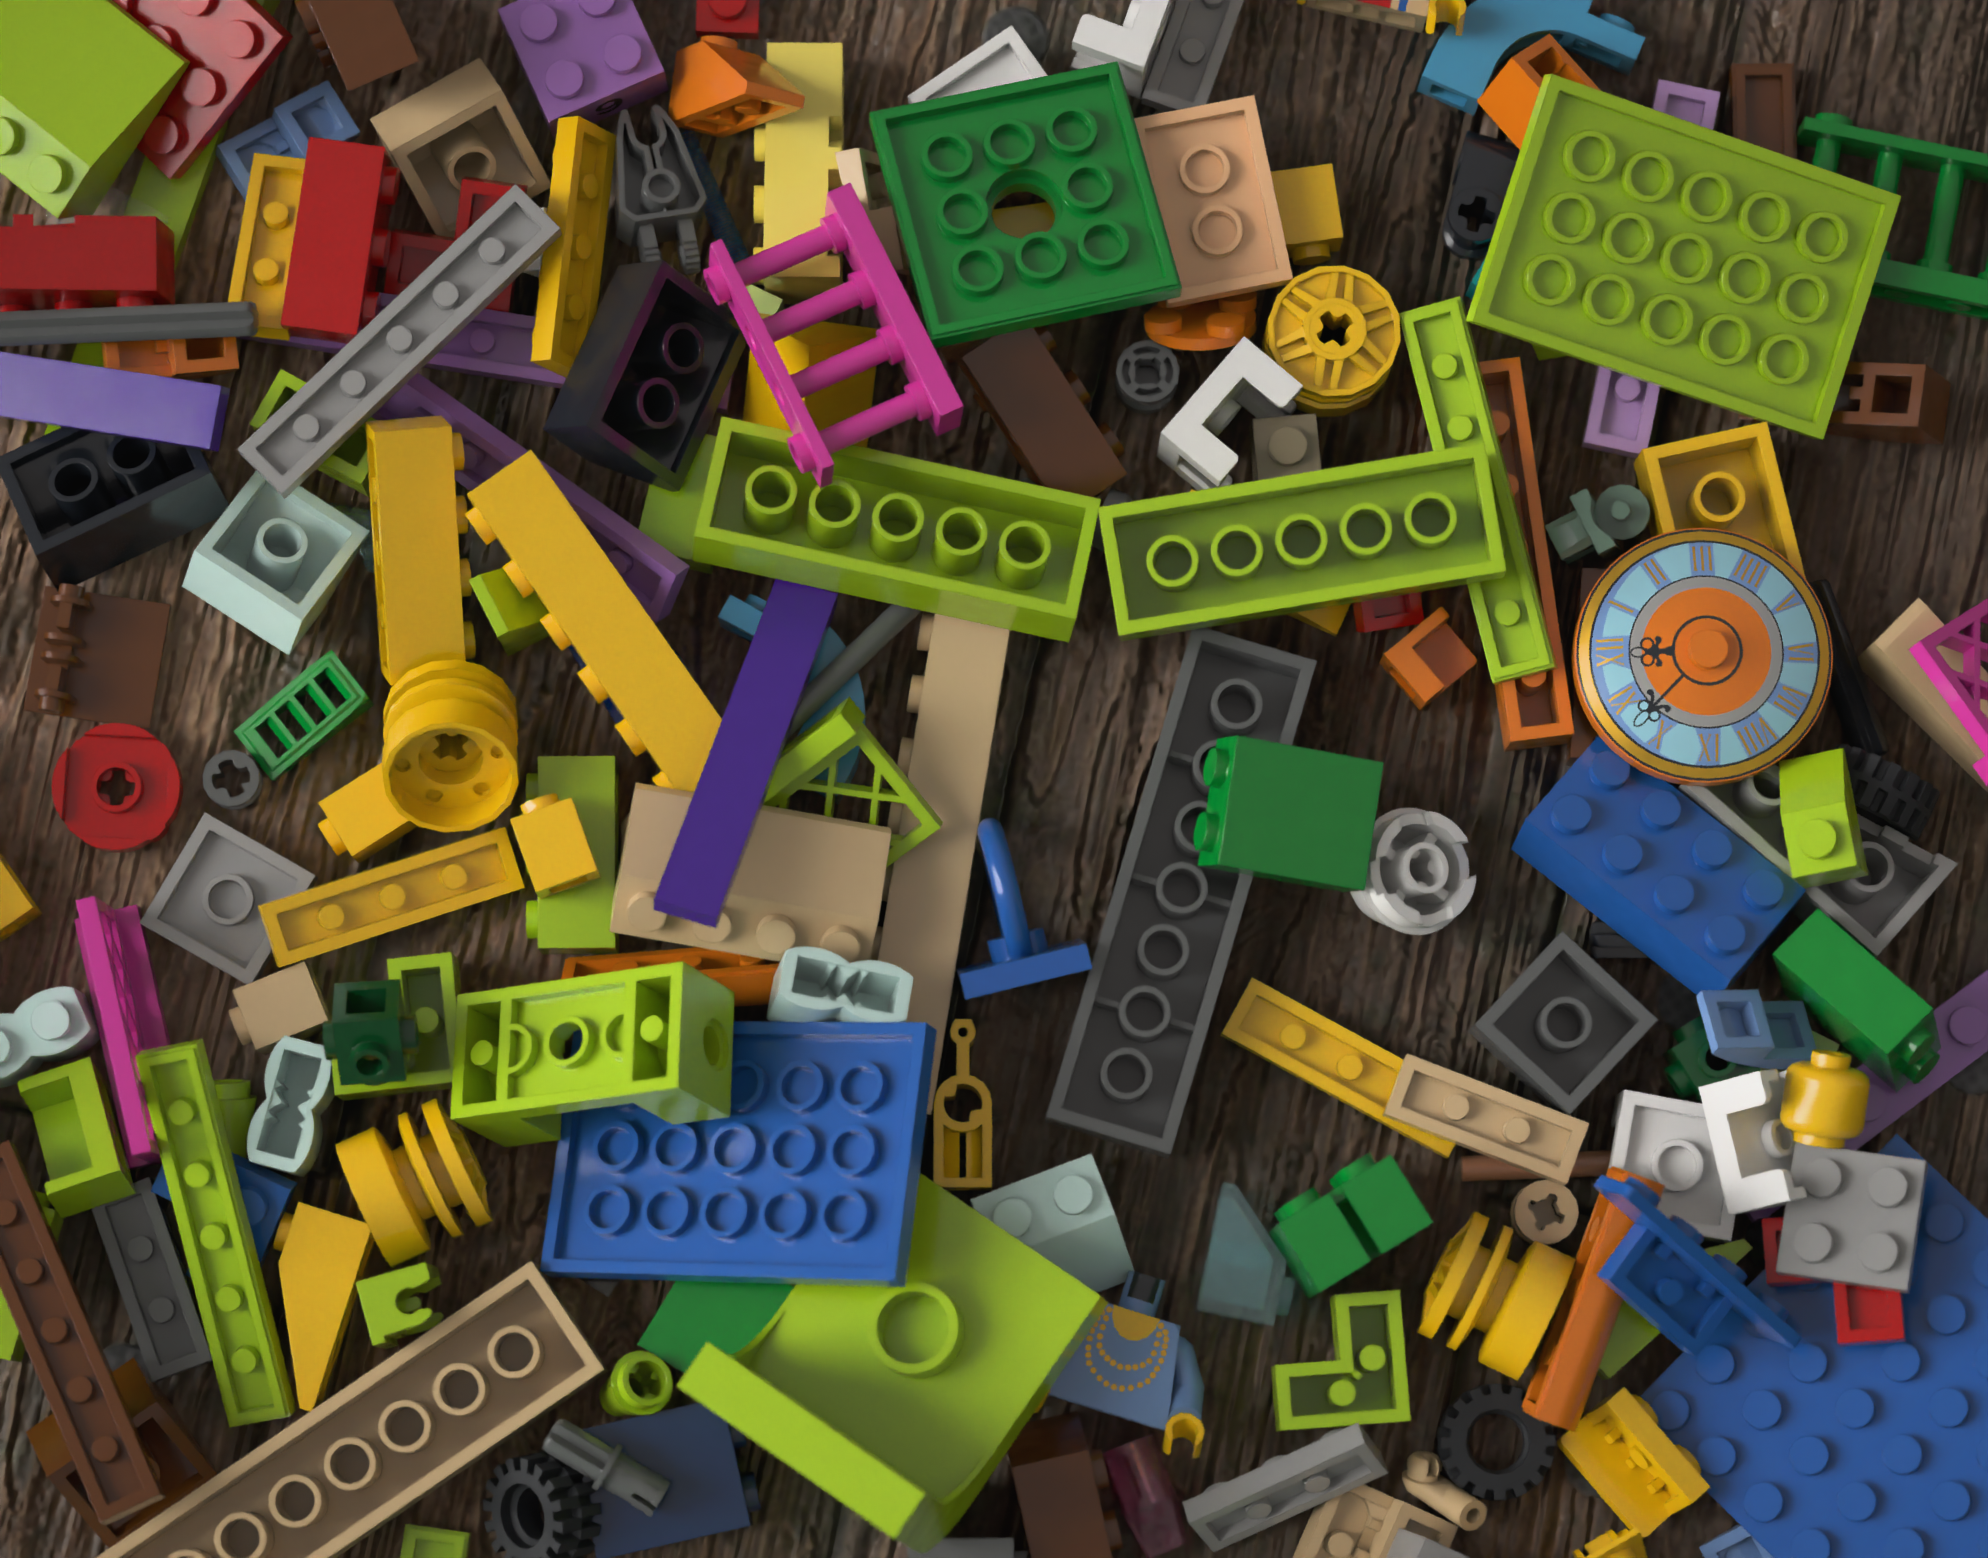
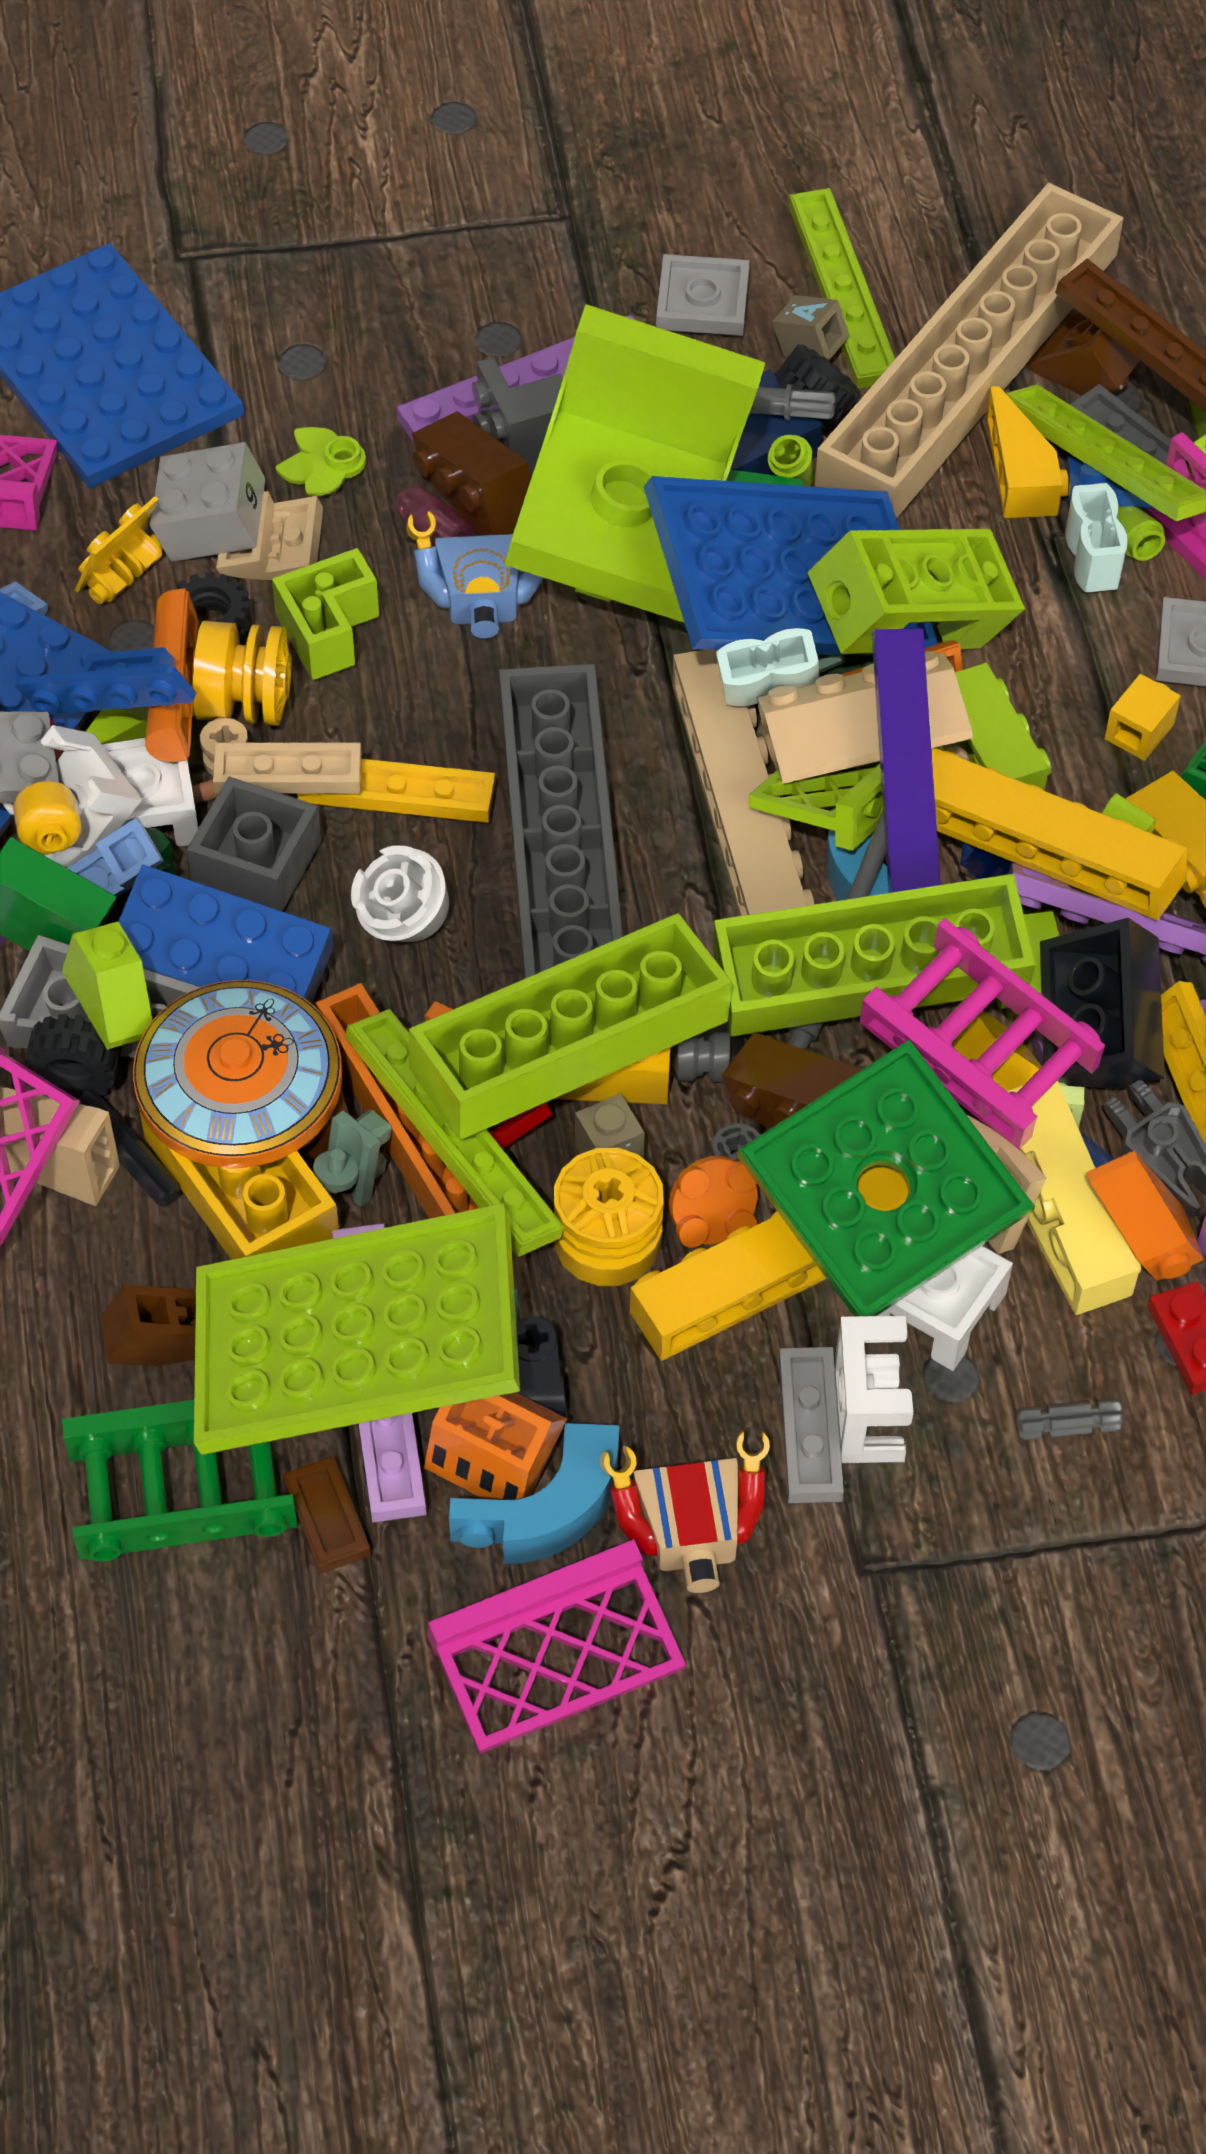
camera: 160 degrees right, 25 degrees down
(279, 1007) = (1133, 594): tan brick -> none
(370, 1033) = (1068, 546): dark green brick -> none
(389, 1301) = (973, 455): lime hinge -> none
(391, 896) = (1101, 669): yellow plate -> none
(414, 1182) = (1001, 497): yellow wheel -> none
(430, 993) = (1051, 587): lime brick -> none
(450, 746) = (1111, 744): yellow wheel -> none
(554, 845) = (1007, 703): yellow brick -> none
(977, 1129) = (649, 673): yellow piece -> none
(1019, 953) = (652, 755): blue tile -> none
(1065, 1220) = (564, 631): light aqua slope -> none
(1216, 199) = (744, 1262): light nougat plate -> none
(1242, 377) = (669, 1130): white panel -> none
(1242, 1266) = (421, 653): clear light blue slope -> none
(1285, 1487) = (346, 537): light grey plate -> none
(1288, 813) = (505, 871): green brick -> none
(1348, 1226) = (357, 670): green piece -> none
(1440, 1493) = (249, 580): tan arm -> none
(1633, 1462) = (105, 622): yellow bracket -> none

